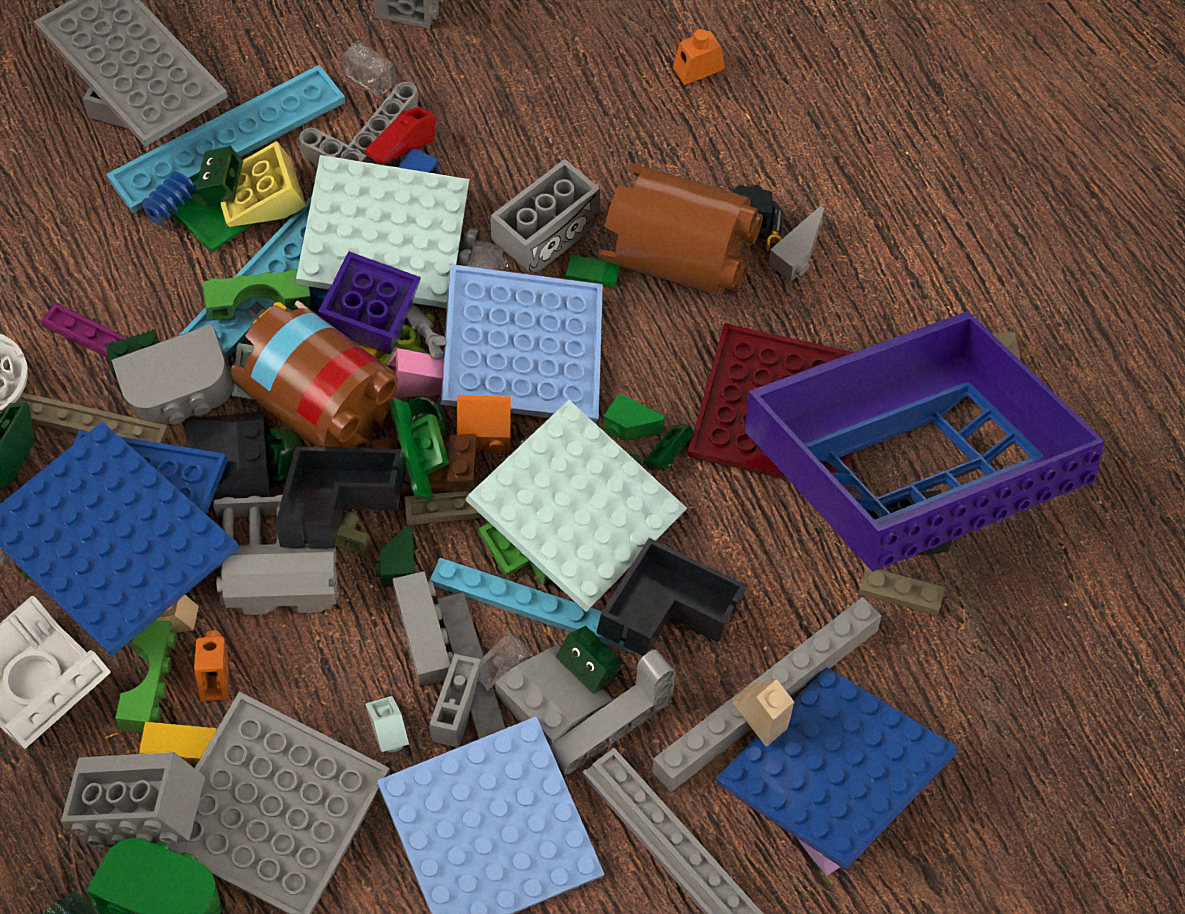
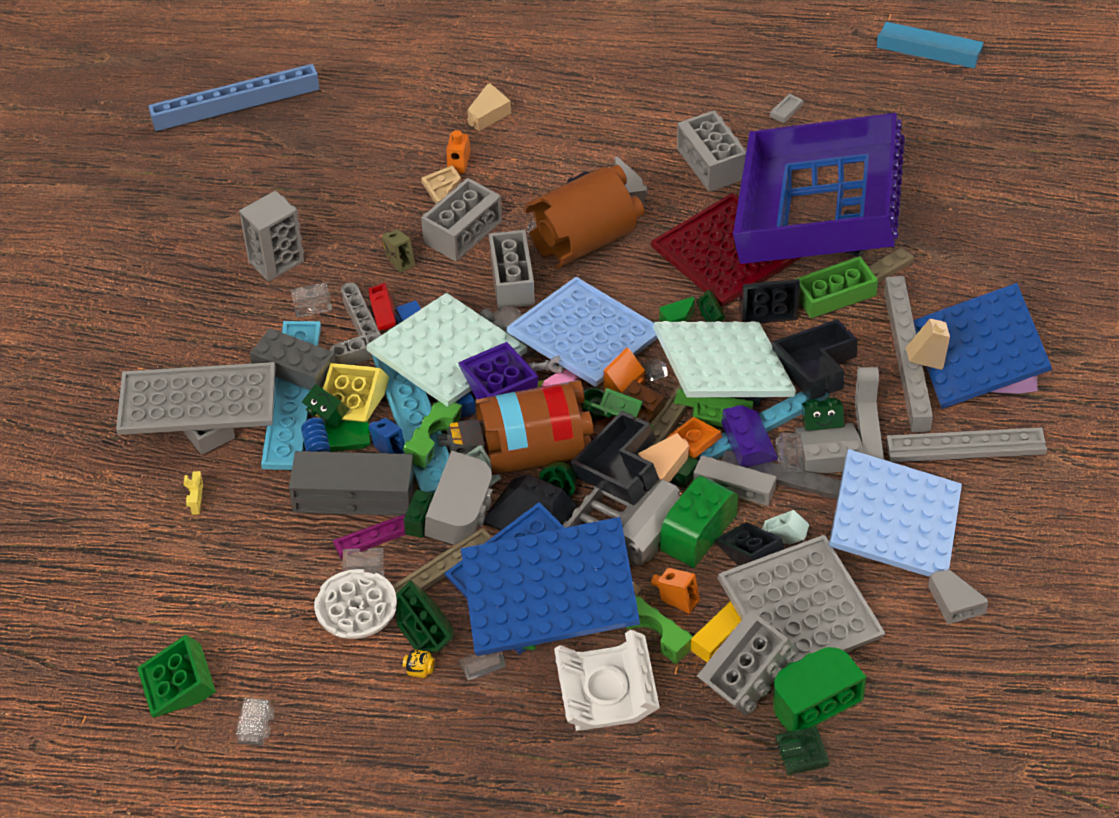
camera: 50 degrees left, 10 degrees down
(29, 143) = (195, 487): none -> light yellow plate
(42, 355) = (371, 561): none -> clear brick
(133, 266) = (351, 483): none -> dark grey brick
(221, 252) = (387, 437): none -> blue torso
(259, 105) = (293, 358): none -> dark grey brick
(324, 625) = (697, 520): none -> green brick
(334, 701) = (749, 543): none -> black slope
(378, 538) = (667, 456): none -> light nougat slope
(447, 547) = (698, 435): none -> orange plate
(455, 701) = (800, 487): light grey slope -> none
(490, 601) = (747, 436): none -> dark purple slope
(504, 87) = (398, 244): none -> olive torso
(592, 271) = (556, 279): green tile -> none
(594, 124) = (461, 219): none -> light grey brick
(643, 73) = (441, 183): none -> tan wing
(717, 500) = (769, 301): none -> black slope
(796, 41) = (488, 108): none -> tan slope
(805, 554) = (836, 287): none -> bright green brick
(919, 288) = (711, 150): none -> light grey brick
(1076, 329) = (786, 108): none -> light grey tile

